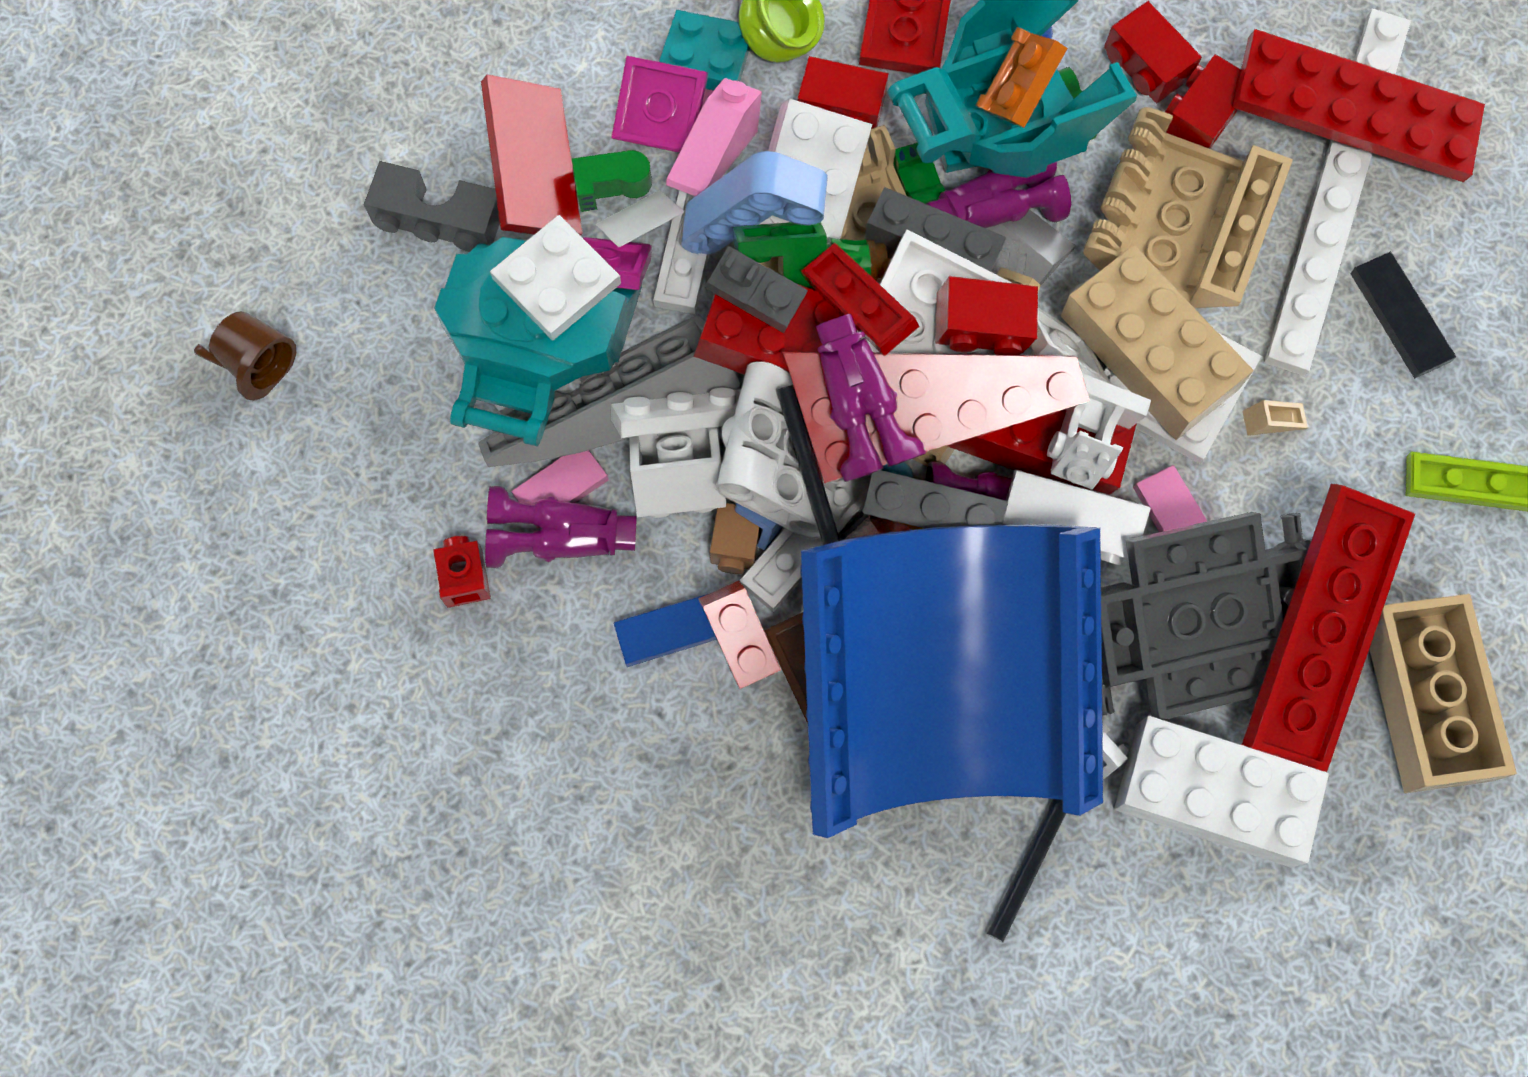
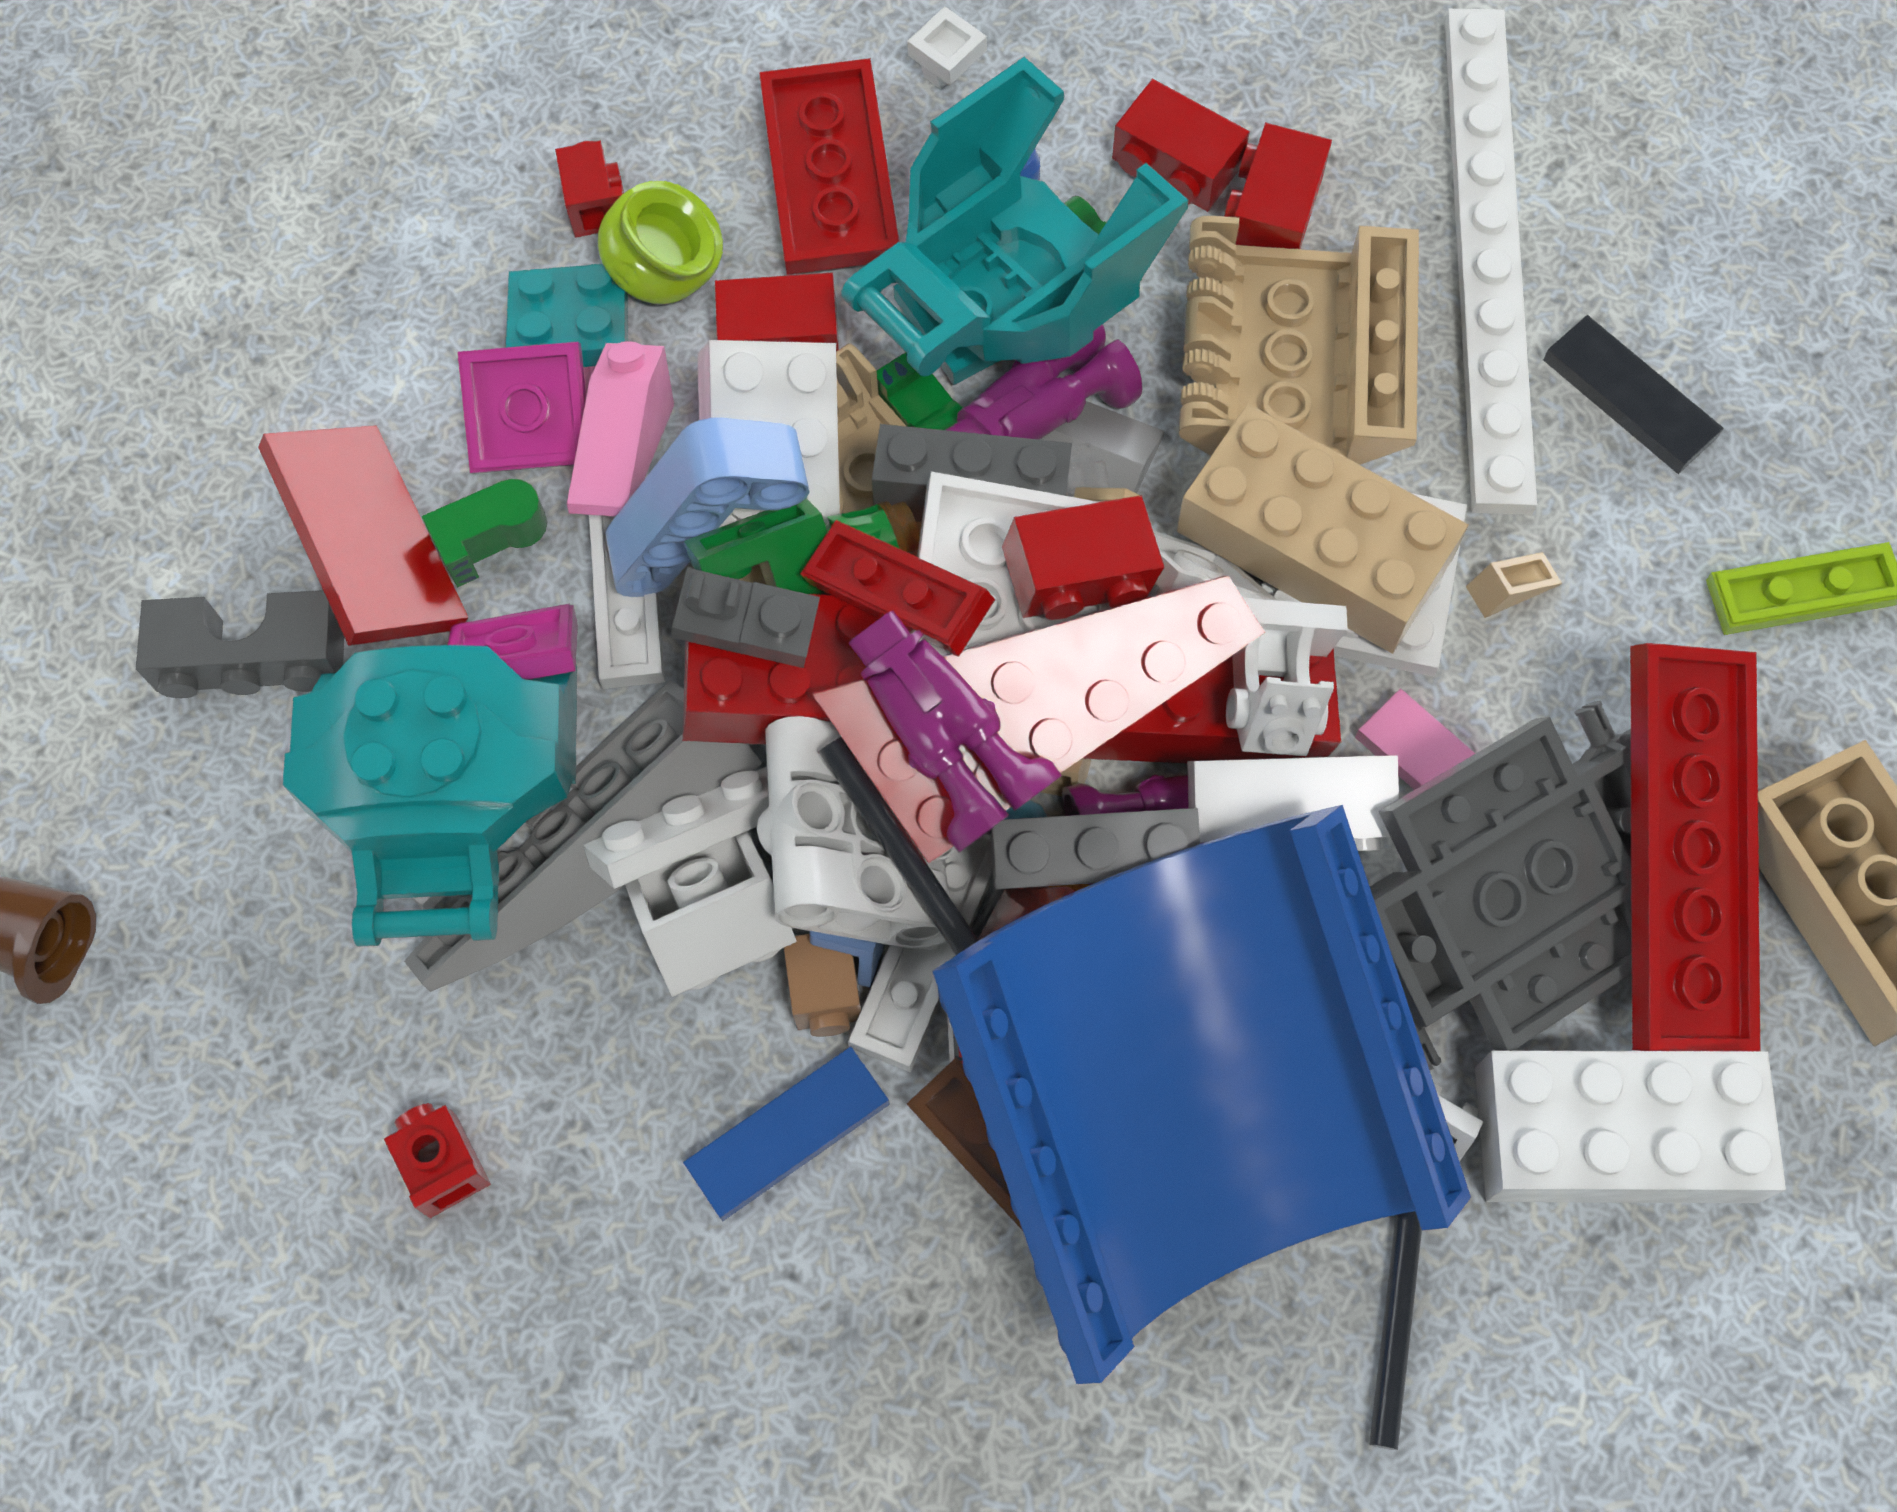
camera: 15 degrees left, 5 degrees down
(555, 277) = (449, 686): white plate -> none
(565, 479) = (543, 988): bright pink tile -> none
(565, 532) = (571, 1051): magenta piece -> none
(639, 218) = (544, 571): white sticker -> none
(739, 634) = (874, 1120): brick -> none
(1022, 77) = (1021, 222): orange plate -> none
(1359, 105) = (1477, 136): red plate -> none

